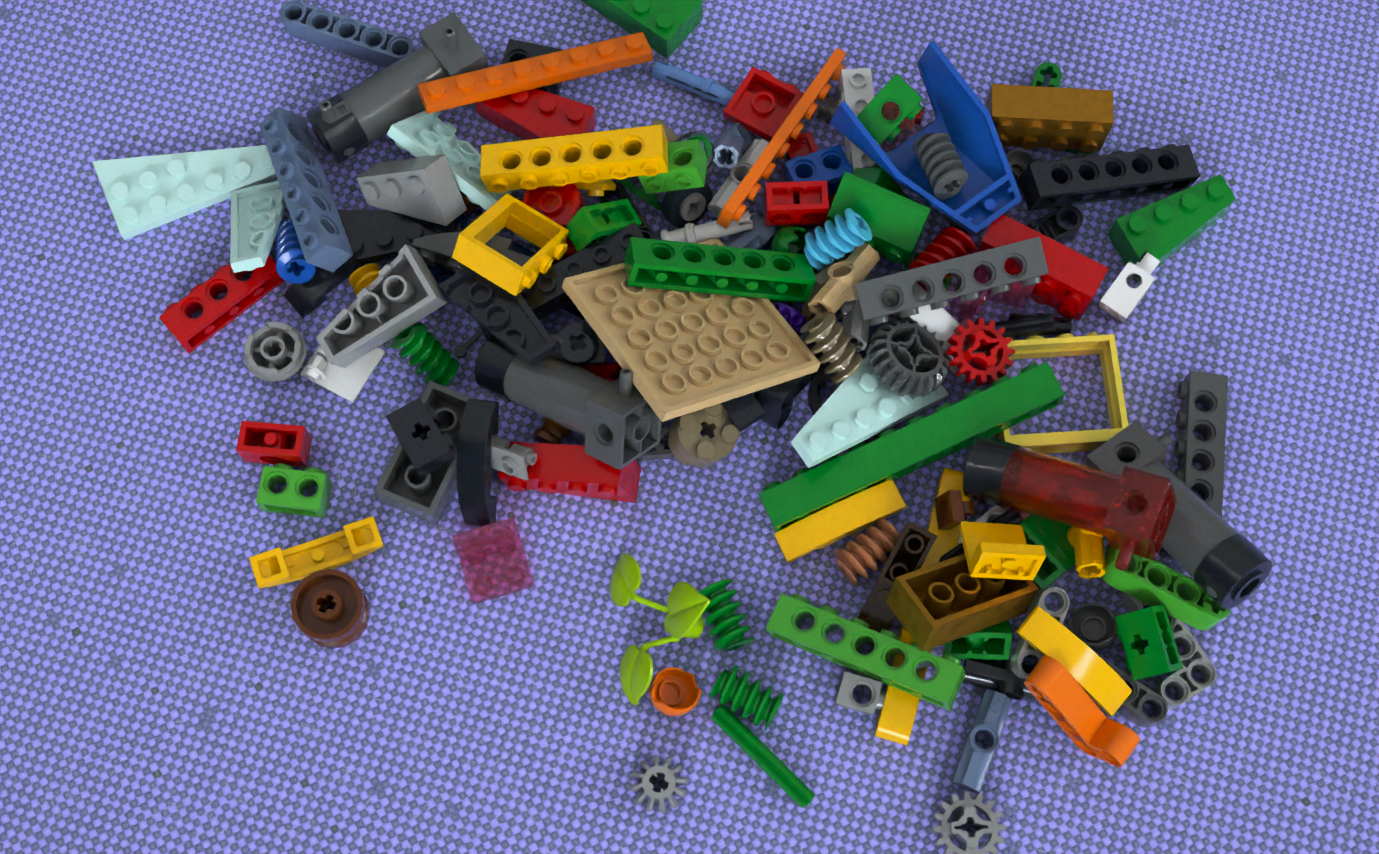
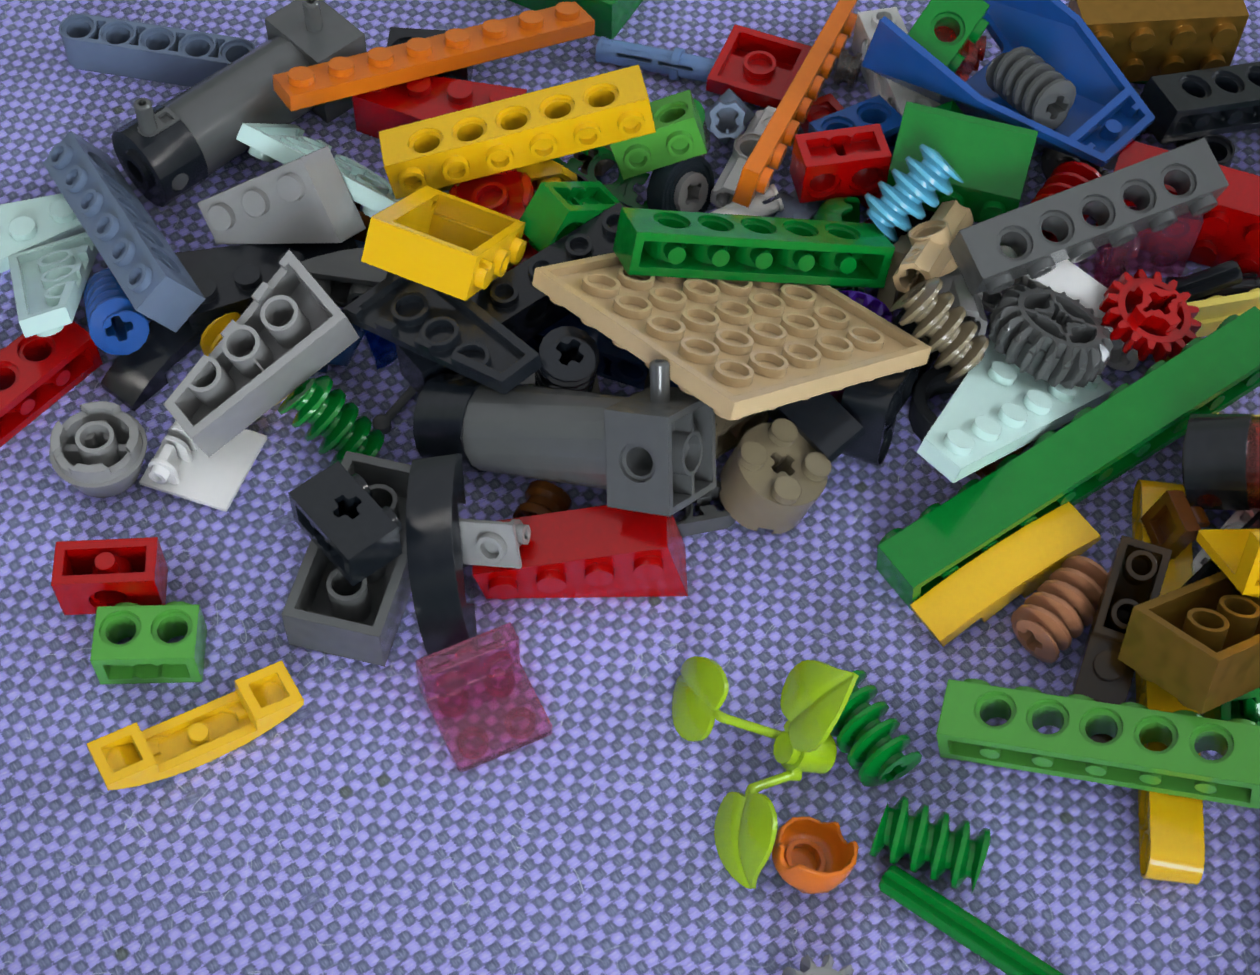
camera: 10 degrees left, 15 degrees down
(327, 626) = (230, 806): reddish brown wheel -> none
(845, 698) = (1086, 827): light grey brick -> none

